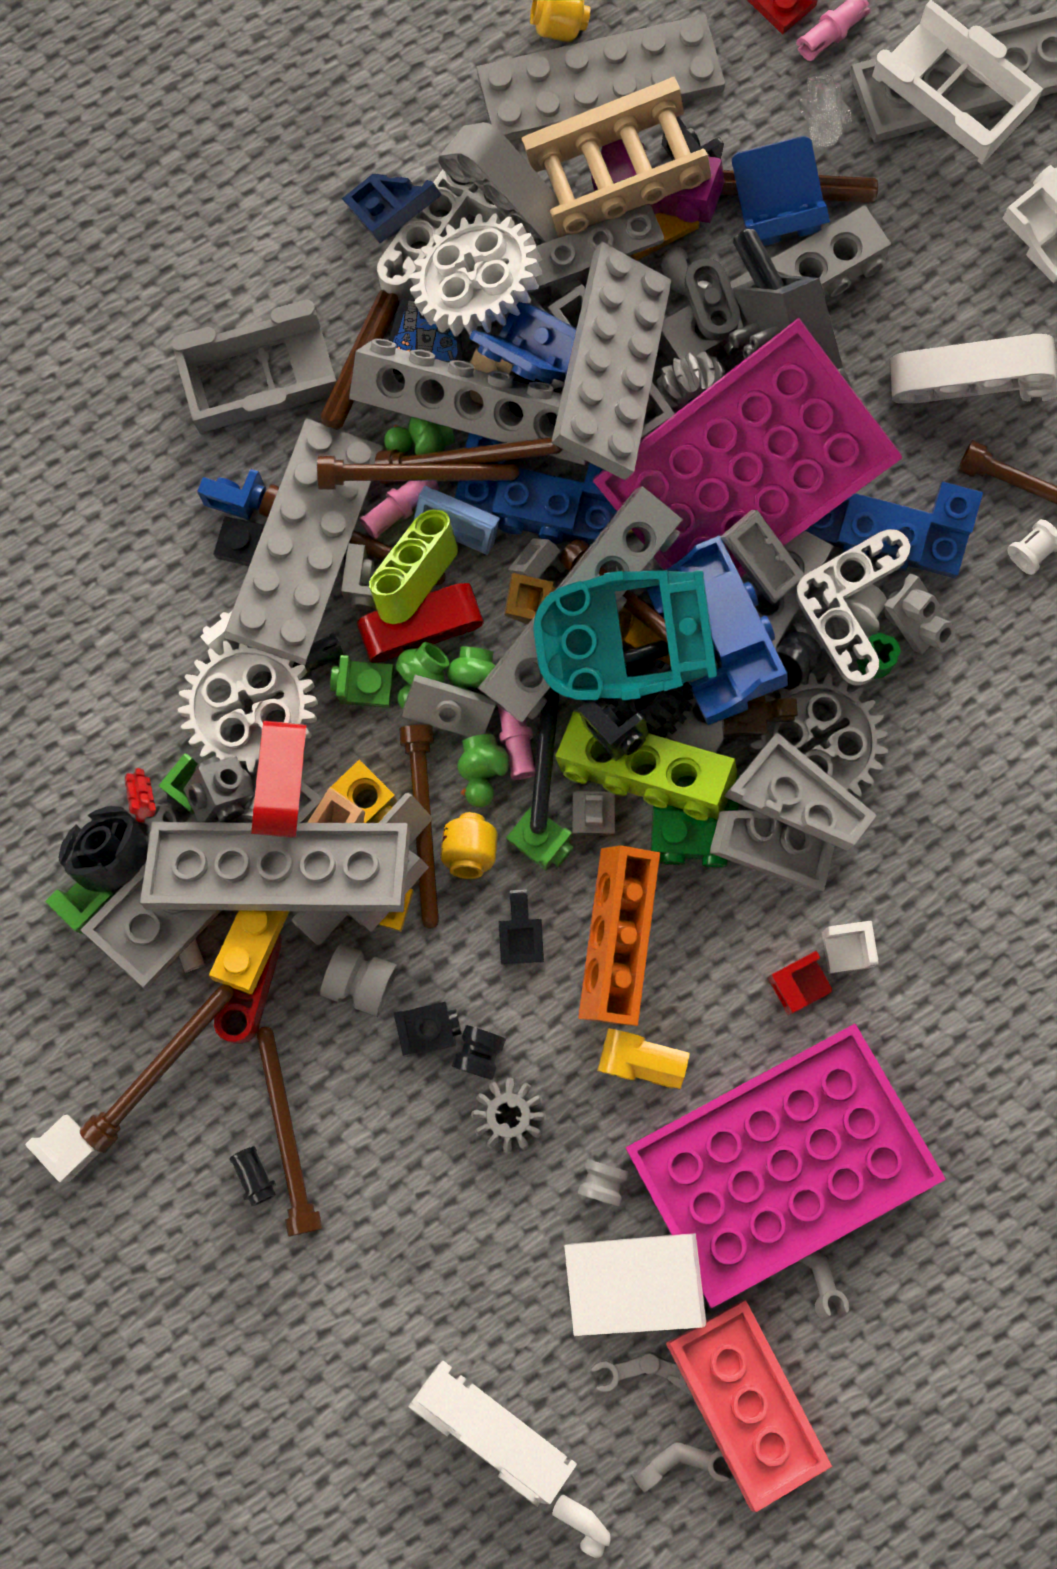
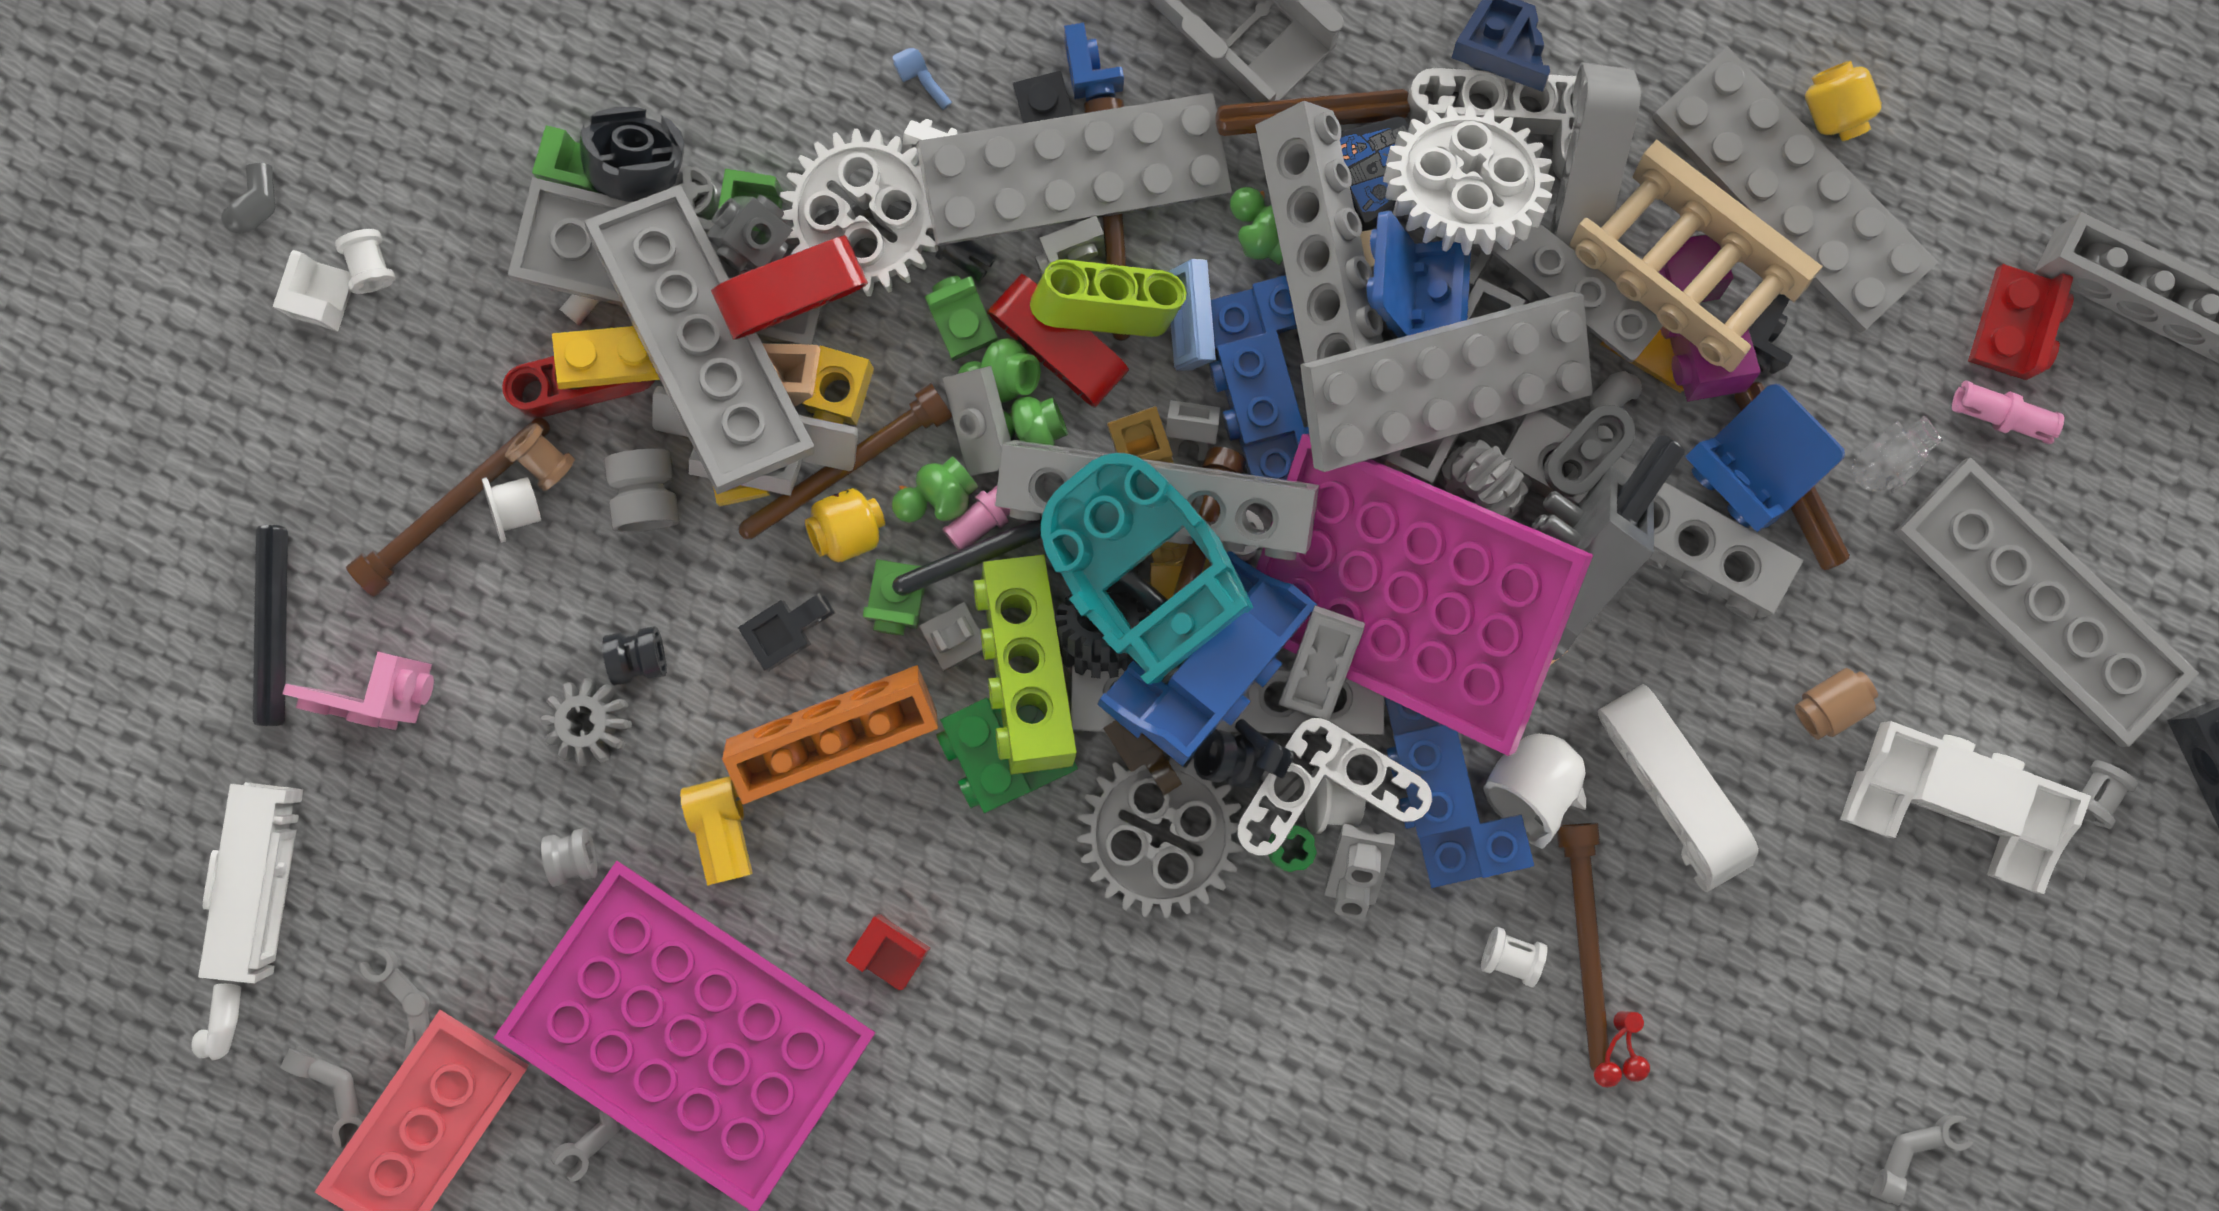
camera: 60 degrees right, 5 degrees up
(63, 1097) = (365, 261): none -> white bush
(102, 1130) = (353, 319): reddish brown piece -> none
(140, 795) = (709, 156): red axle -> none
(156, 617) = (911, 64): none -> medium blue hand
(253, 1176) = (388, 497): black pin -> none
(290, 1042) = (539, 457): none -> medium nougat bush
(298, 1322) = (270, 625): none -> black axle
(313, 1085) = (511, 505): none -> white piece
(334, 472) = (1160, 155): reddish brown piece -> none
(395, 506) = (1175, 243): bright pink pin -> none
(406, 1238) = (392, 695): none -> bright pink bracket
(410, 1034) = (615, 572): black brick -> none
(472, 455) = (1215, 216): reddish brown piece -> none
(610, 732) = (1036, 596): black bracket -> none
(635, 1285) = (480, 947): white tile -> none
(772, 848) = (1023, 851): light grey wing -> none
(800, 794) = (1081, 844): light grey wing -> none
(812, 623) = (1273, 757): none -> black hand
(850, 947) = (954, 984): white panel -> none
(924, 454) = (1540, 781): none -> white piece
(973, 240) = (1837, 703): none -> medium nougat brick
(975, 51) = (2064, 589): white piece -> none

